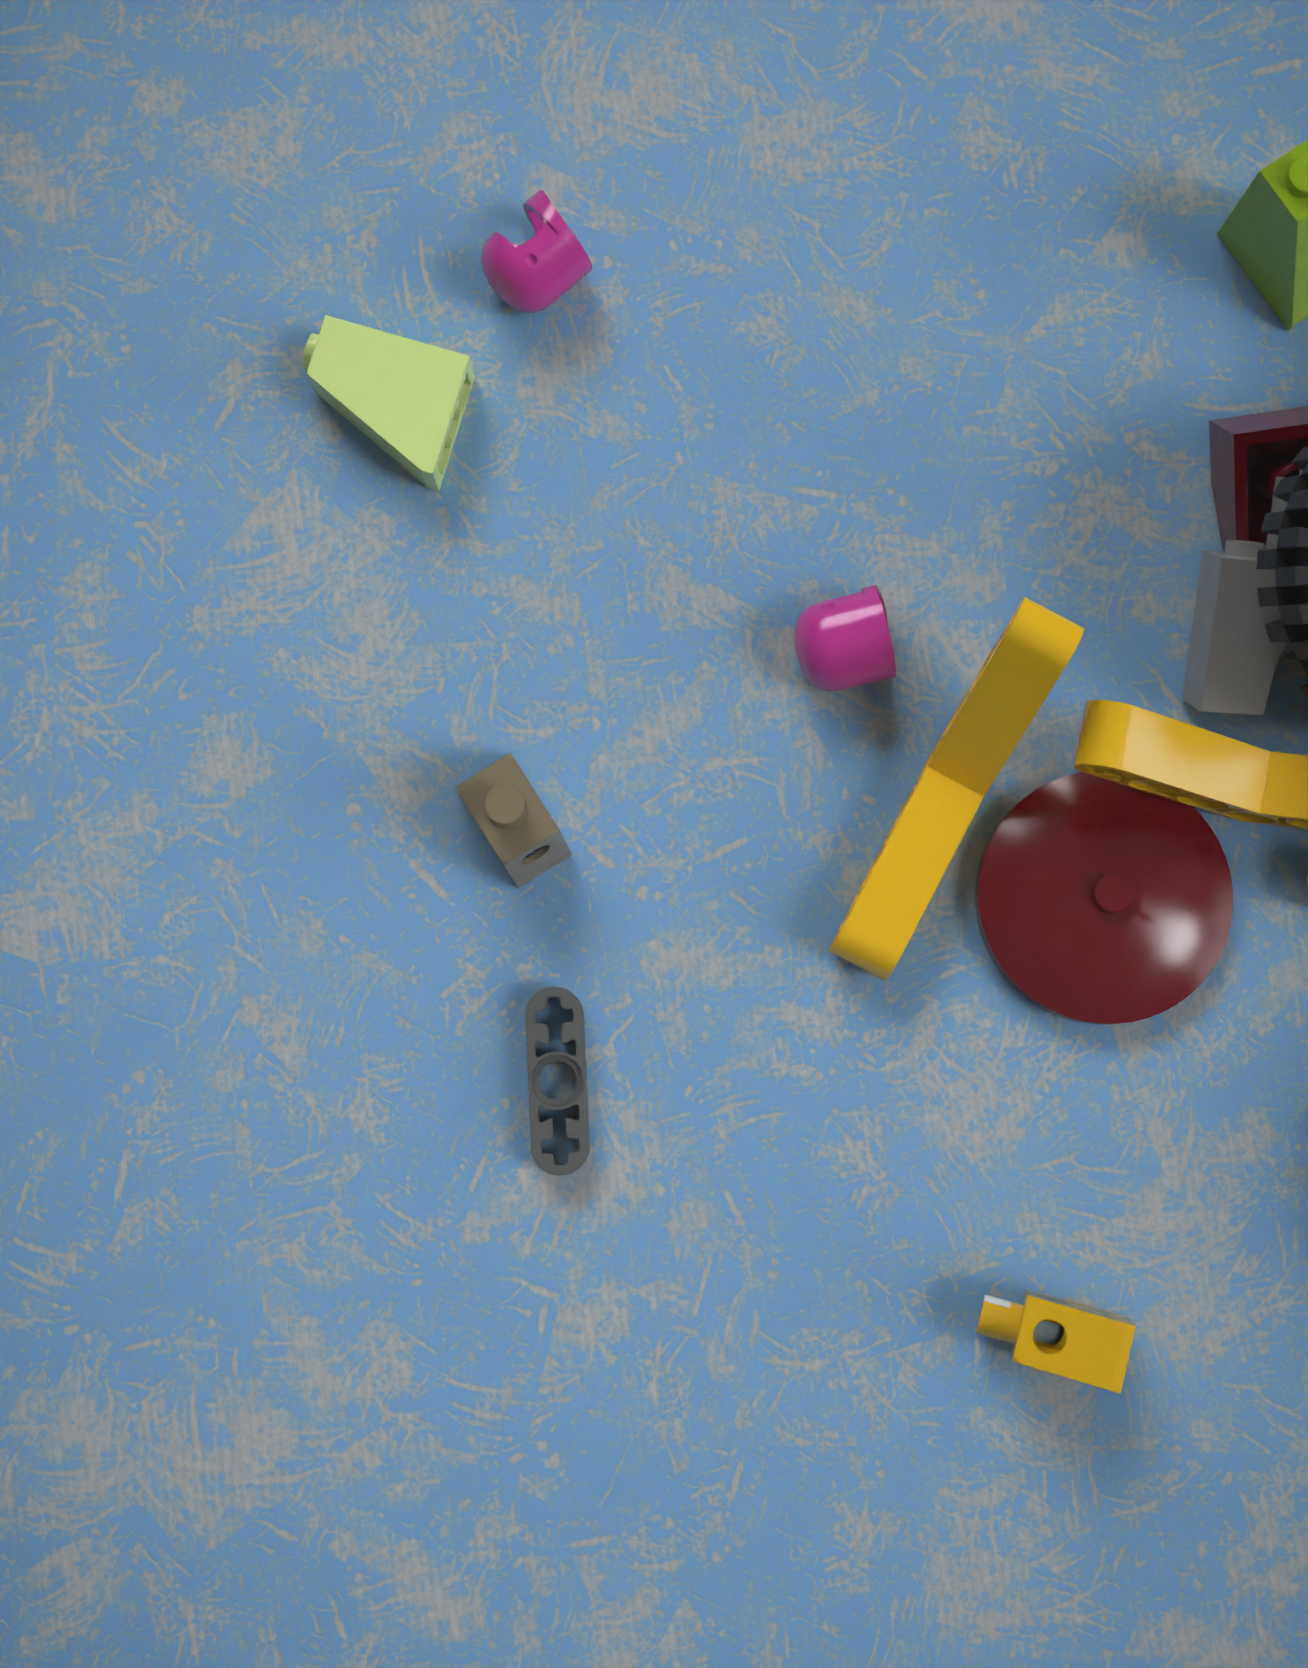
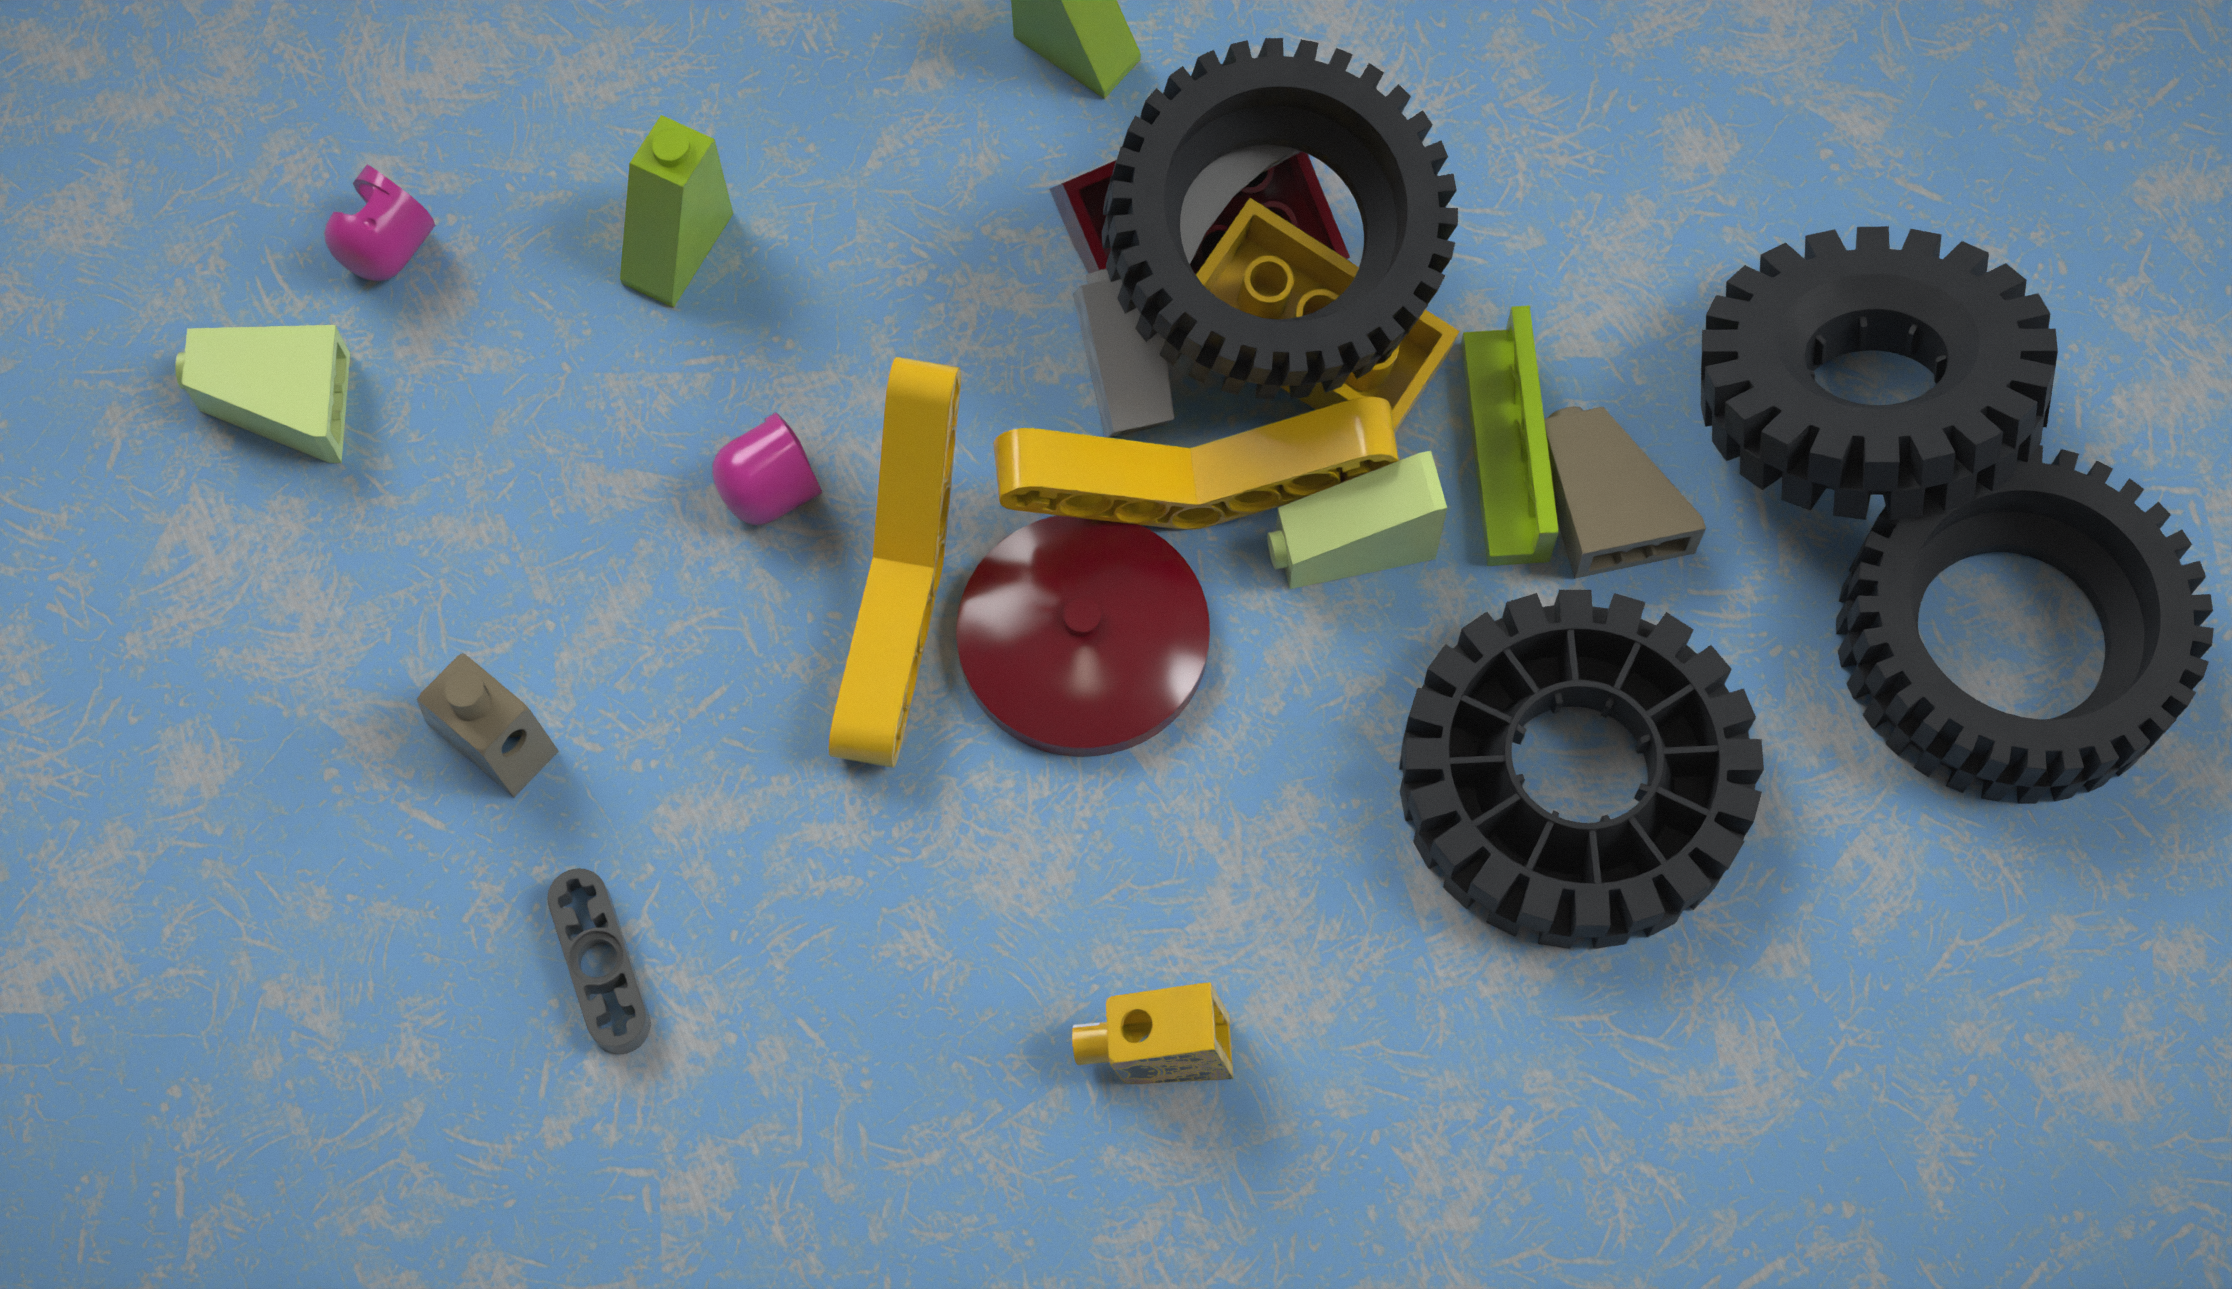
camera: 15 degrees left, 15 degrees down
(831, 334) = (672, 210): none -> lime slope

